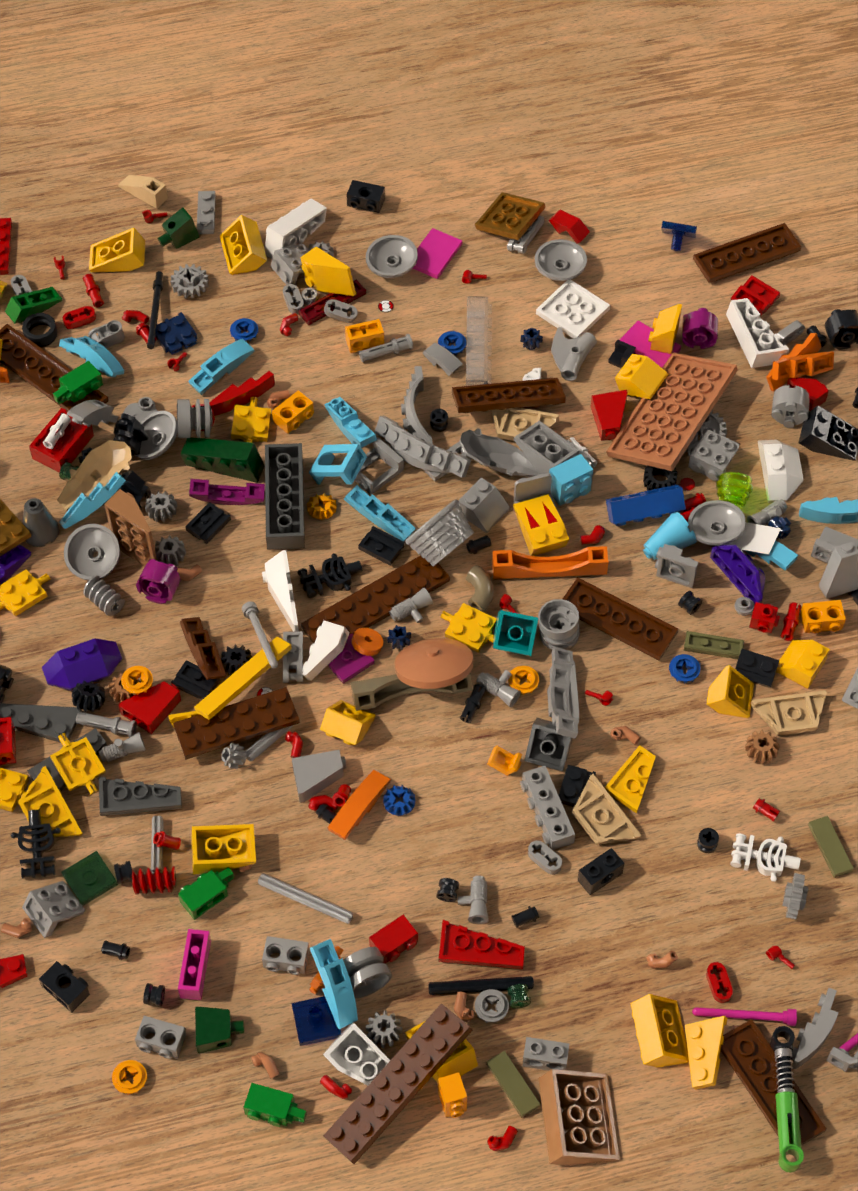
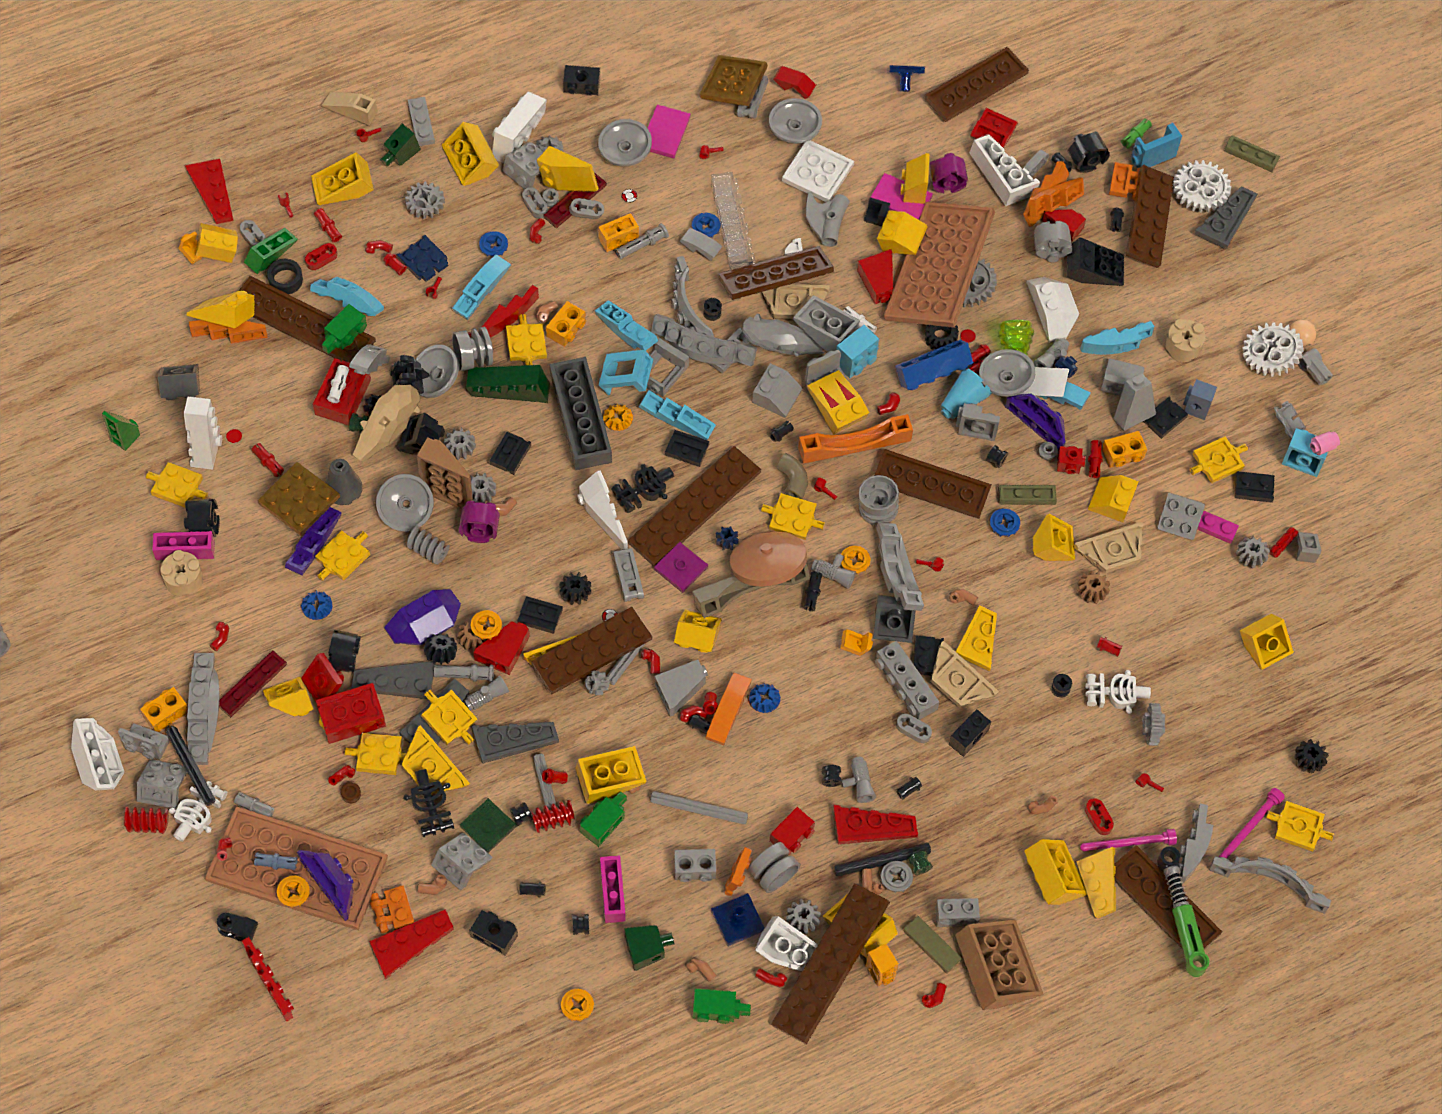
camera: 15 degrees left, 5 degrees up
(86, 505) = (385, 455): medium azure slope -> none
(108, 334) = (354, 272): light grey piece -> none
(139, 410) = (409, 348): light grey plate -> none
(157, 287) = (393, 211): black bar -> none
(163, 1032) = (598, 957): light grey brick -> none
(202, 648) = (539, 582): reddish brown slope -> none
(225, 494) = (521, 420): magenta slope -> none
(240, 680) = (588, 605): yellow tile -> none
(251, 611) = (576, 536): light grey piece -> none
(328, 645) = (662, 558): white slope -> none
(336, 982) = (754, 882): medium azure slope -> none
(367, 641) = (697, 547): orange piece -> none
(410, 606) = (730, 504): light grey piece -> none
(441, 533) = (745, 427): light grey piece -> none
(515, 632) = (838, 515): teal slope -> none
(531, 338) = (784, 209): dark blue gear -> none
(712, 455) = (988, 303): light grey bracket -> none
(757, 667) = (1073, 510): black plate -> none
(830, 846) = (1174, 671): olive tile -> none

